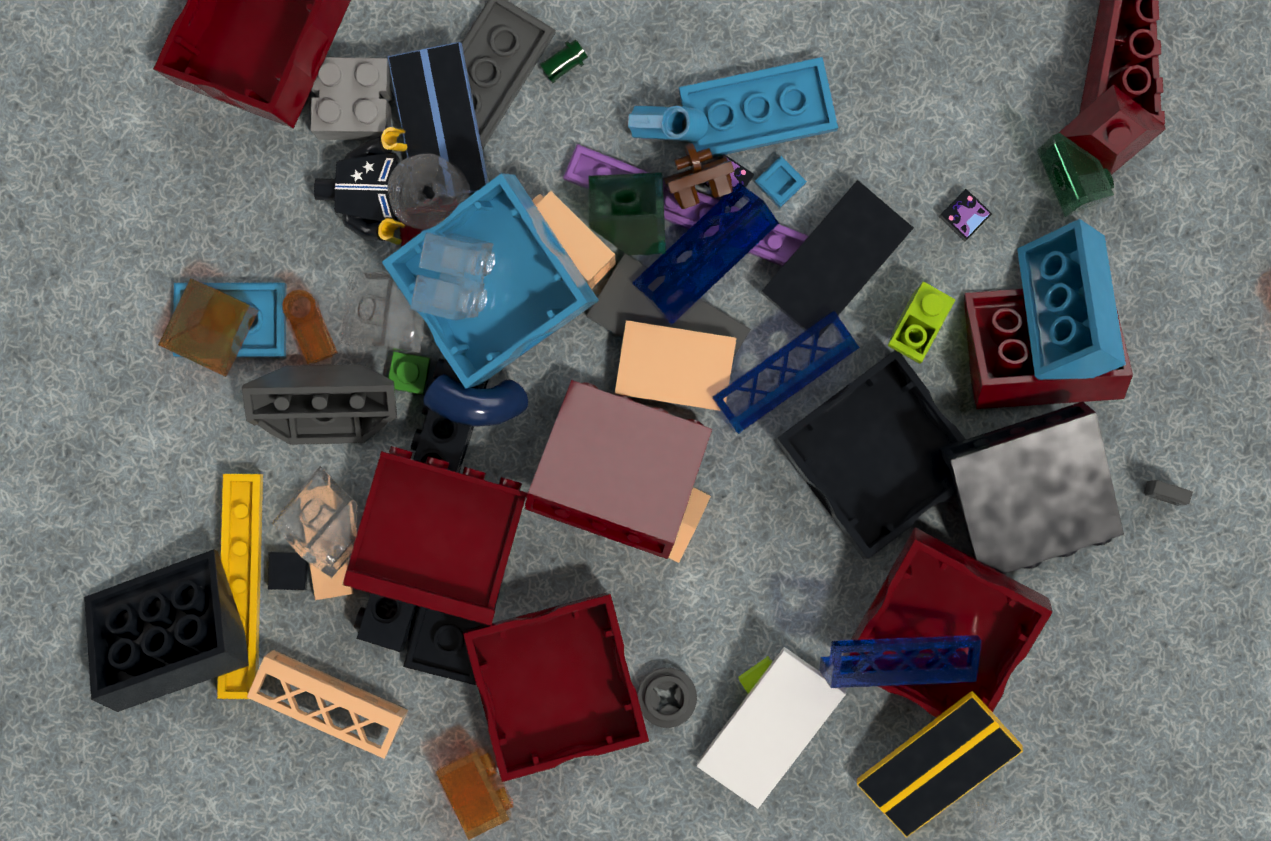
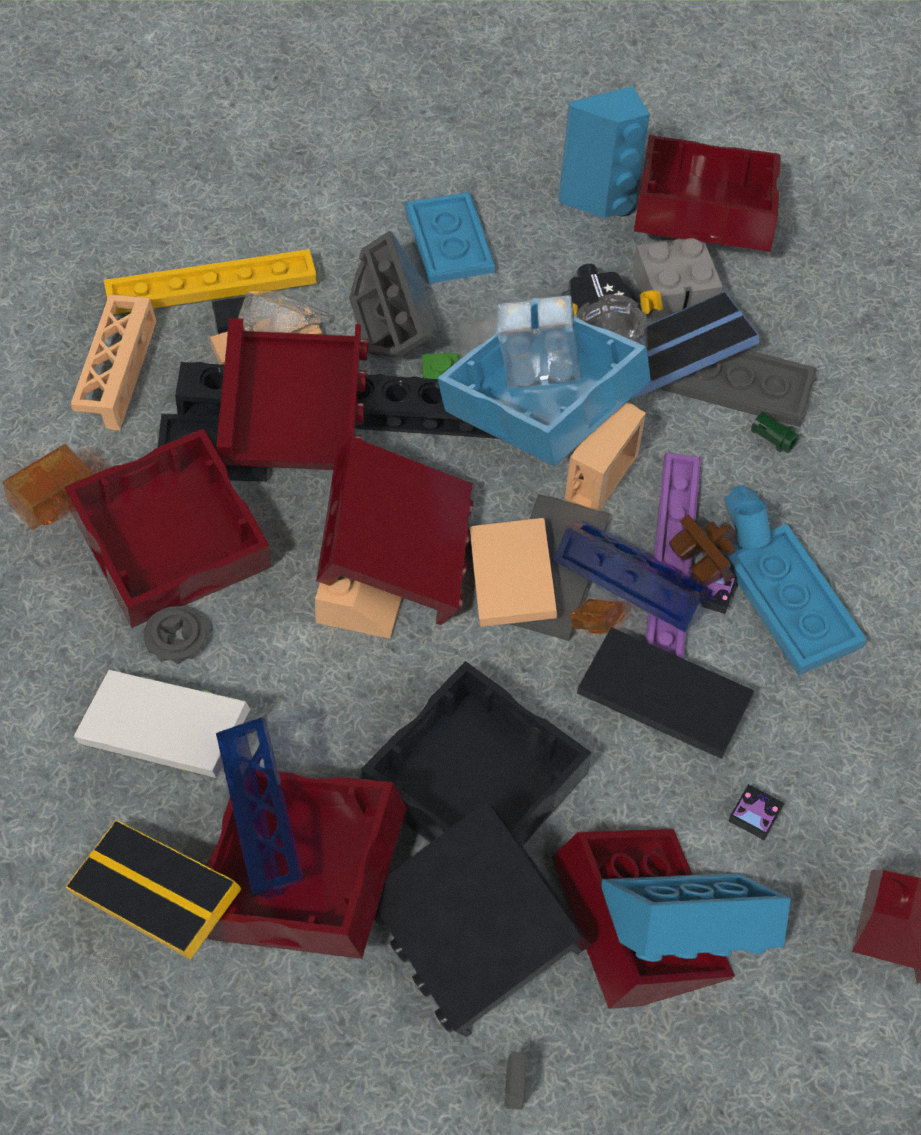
camera: 75 degrees right, 30 degrees down
(163, 633) = (153, 229): black slope -> none
(194, 128) = (604, 153): none -> dark azure slope
(208, 327) = (437, 218): clear orange slope -> none
(310, 330) = (467, 284): clear orange piece -> none
(474, 405) = (424, 404): dark blue cylinder -> none
(629, 211) = (647, 499): clear green slope -> none
(740, 298) = (597, 616): none -> clear orange plate
(780, 182) = (727, 635): dark azure tile -> none
(793, 382) = (525, 677): clear blue fence -> none
(920, 322) = (625, 776): lime slope -> none
(1074, 175) = (835, 900): clear green slope -> none

